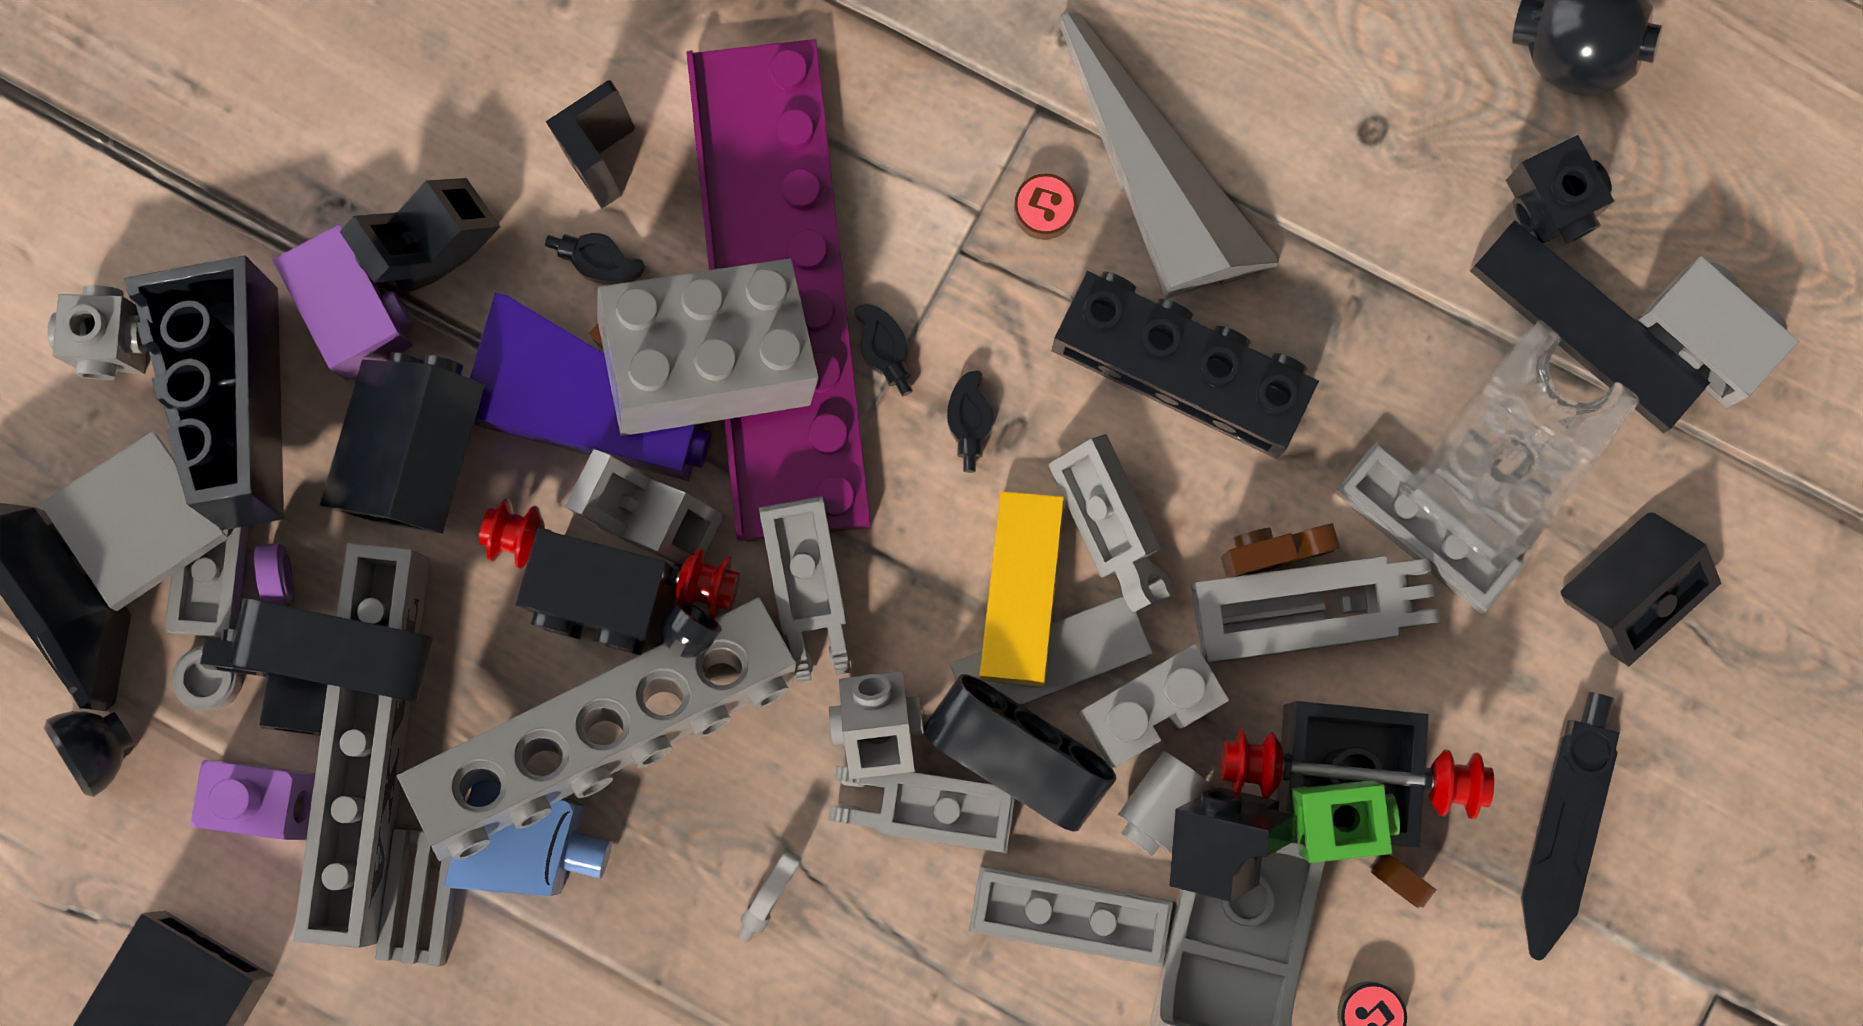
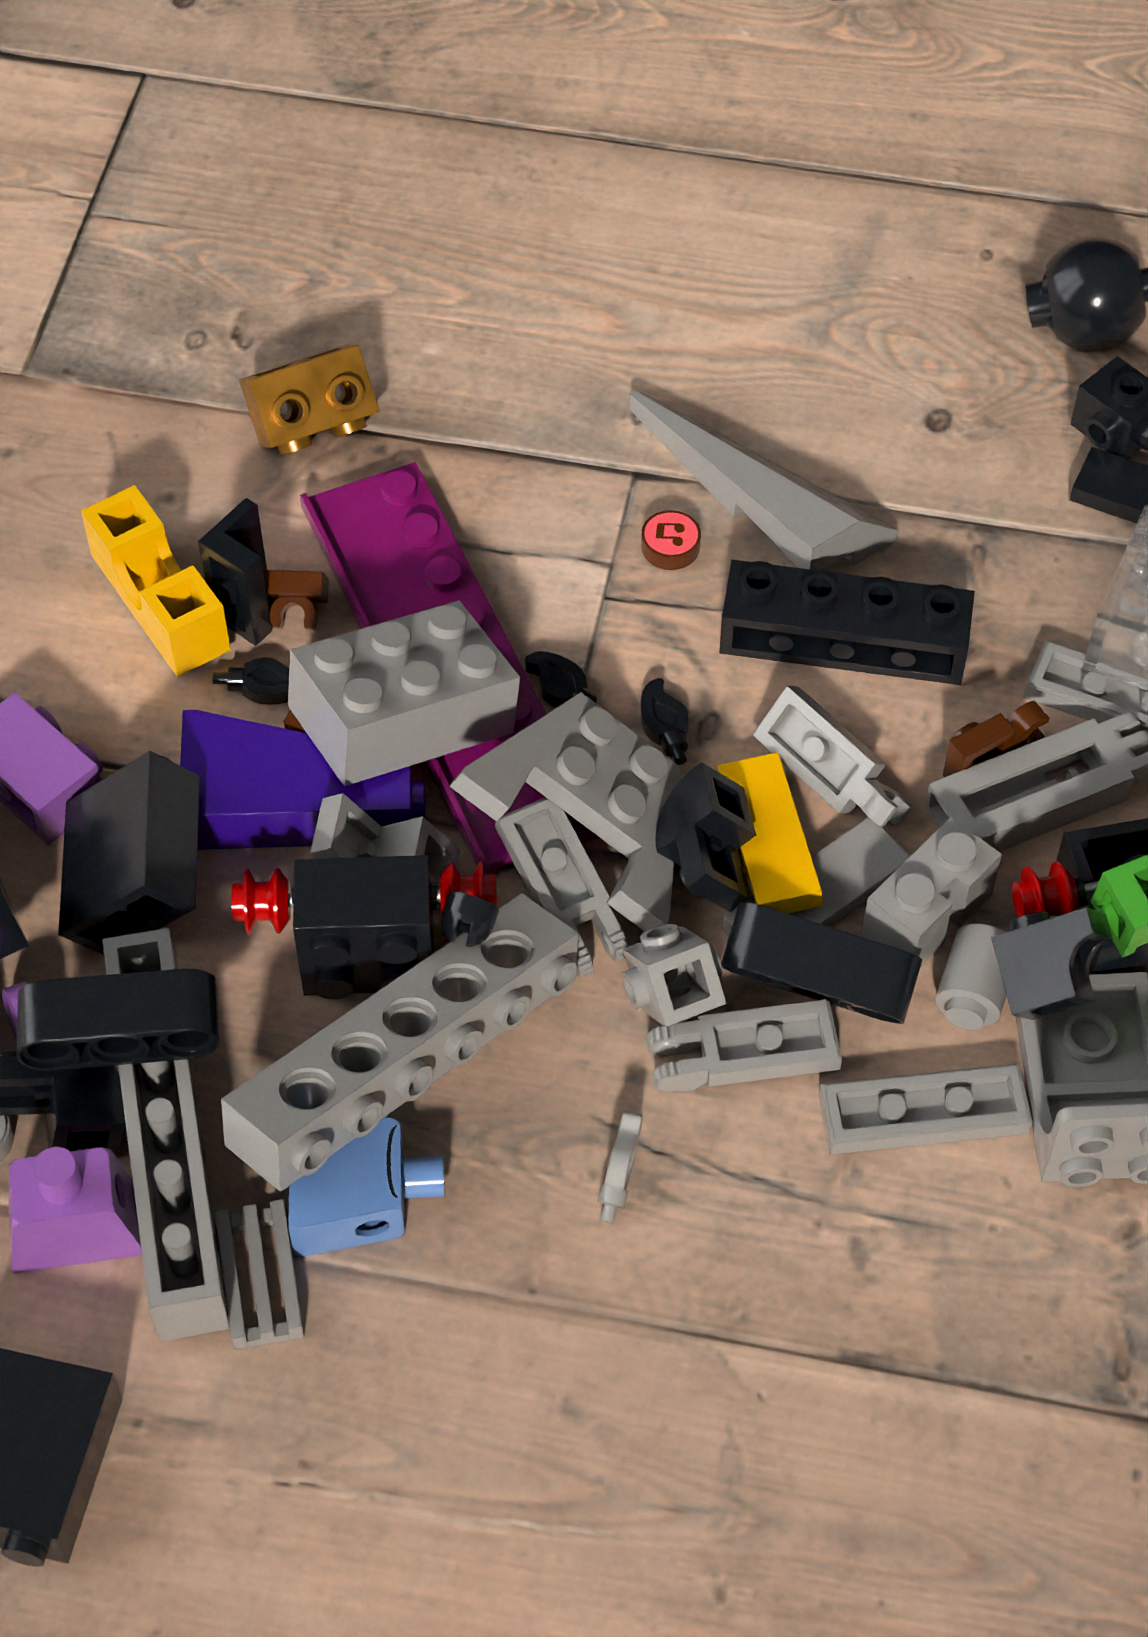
camera: 20 degrees left, 25 degrees down
(425, 238) = (99, 693): black brick -> none
(513, 118) = (169, 603): none -> yellow arch
(651, 164) = (295, 589): none -> reddish brown tile
(878, 490) = (598, 777): none -> light grey wing
(955, 574) = (701, 832): none -> black brick

